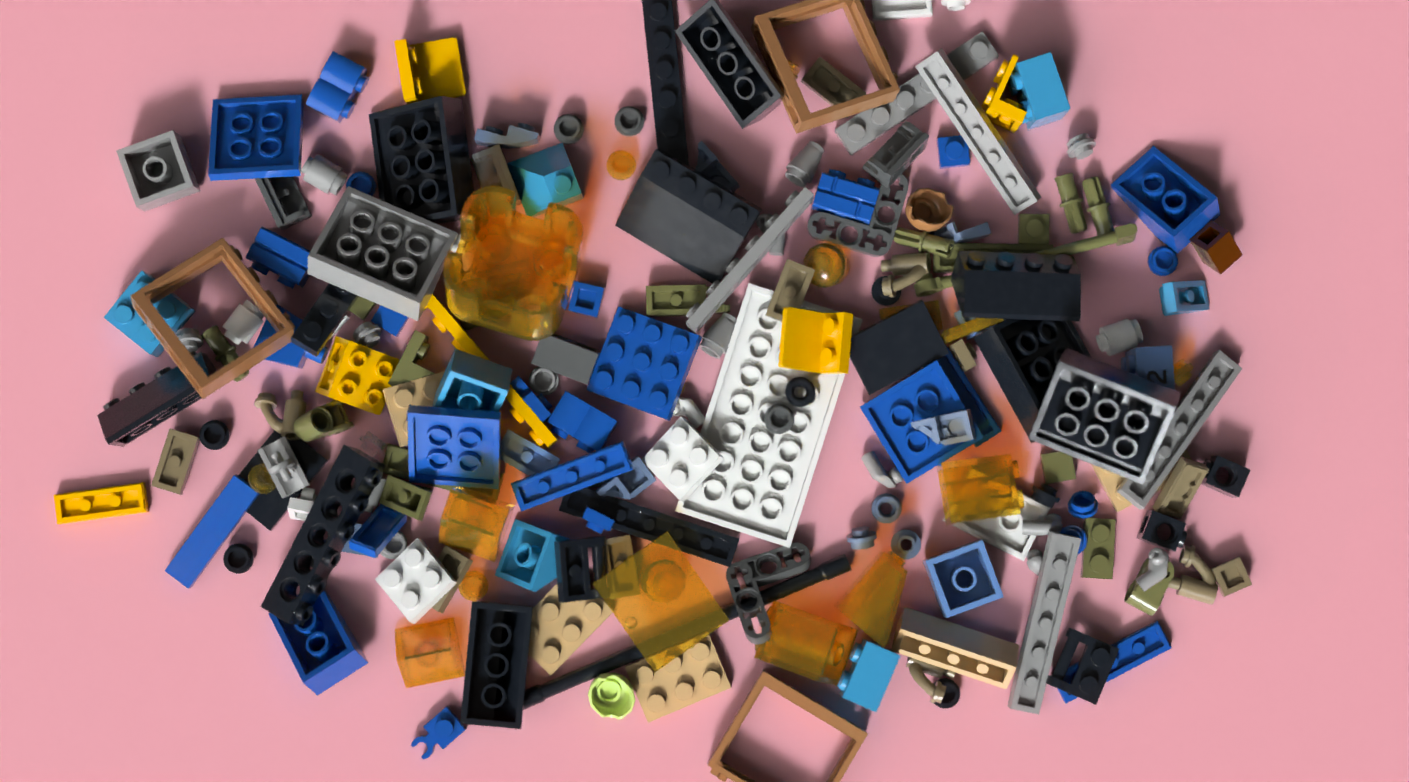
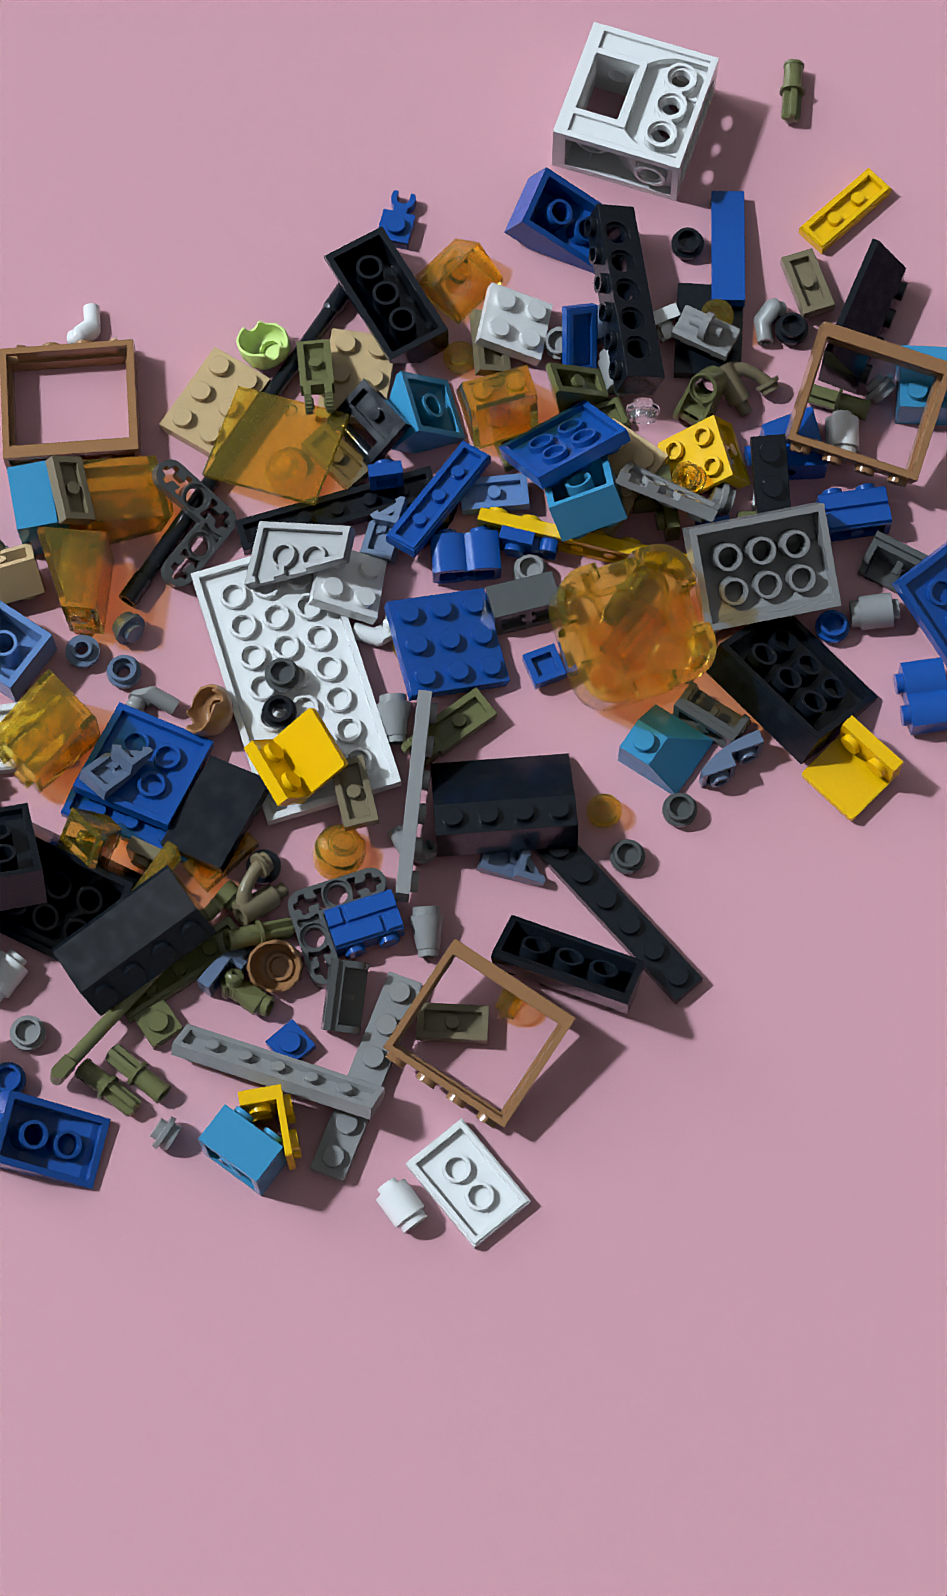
camera: 145 degrees right, 15 degrees down
(64, 629) = (792, 90): none -> olive axle
(164, 707) = (631, 147): none -> white piece
(226, 457) = (771, 310): none -> light grey arm
(372, 364) = (682, 470): none -> clear yellow bush
(412, 358) = (667, 492): none -> light grey wing
(592, 637) = (316, 373): none -> olive hinge
(705, 503) = (295, 550): none -> wing
(841, 659) = (70, 490): none -> dark tan plate
(847, 429) = (210, 711): none -> medium nougat hair
(959, 198) = (245, 993): none -> olive arm
(997, 386) = (91, 836): none -> clear yellow slope
(1127, 285) = (28, 1033): none -> light grey plate

